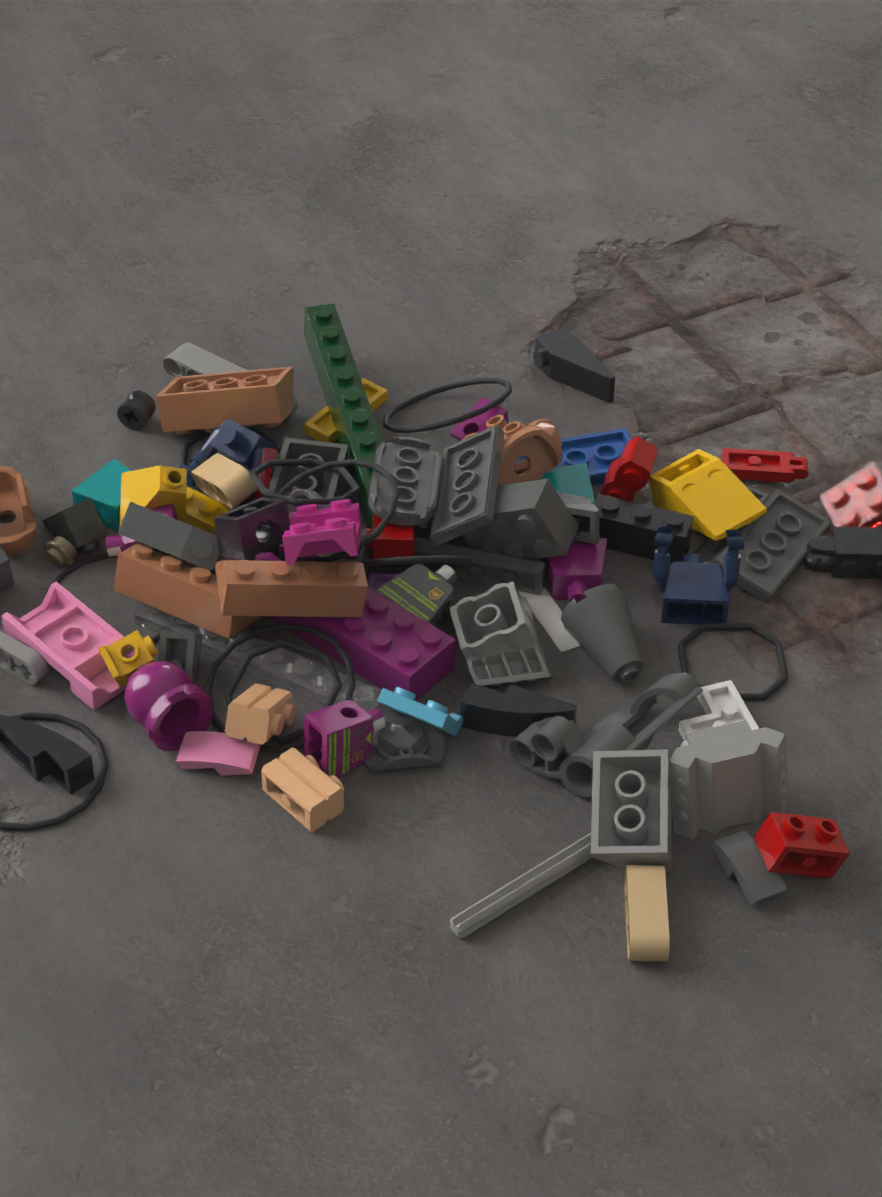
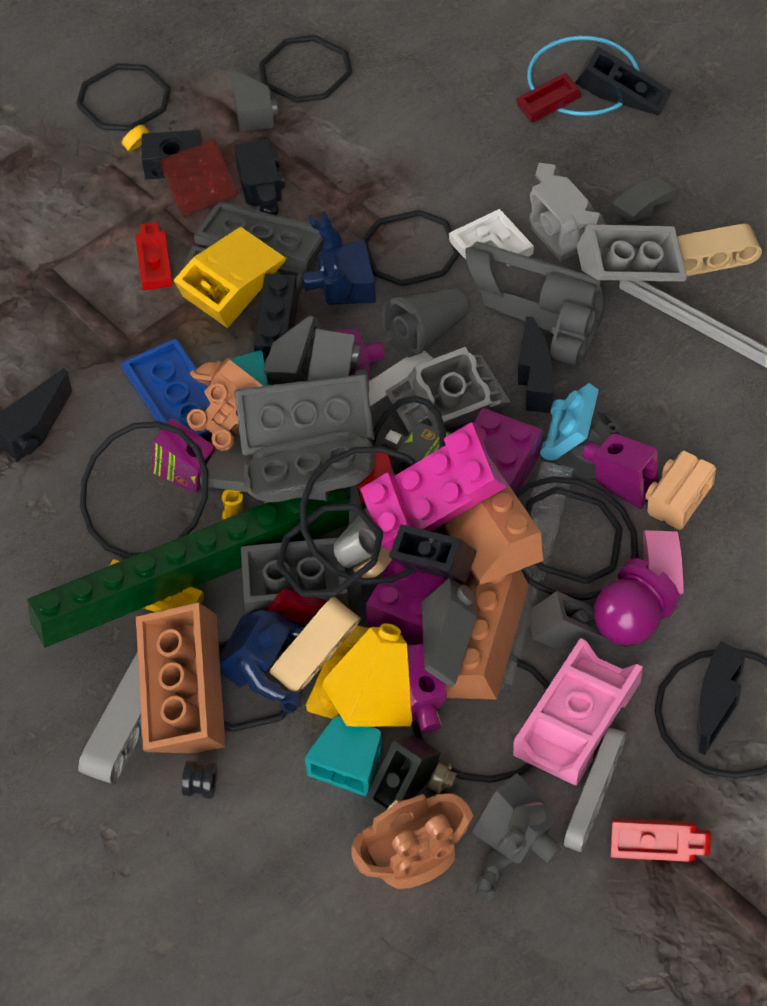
camera: 100 degrees left, 10 degrees up
(121, 667) = (599, 640): yellow brick -> none
(259, 714) = (618, 532): light nougat brick -> none
(630, 470) = (213, 330): red brick -> none
(801, 845) = (619, 164): red brick -> none

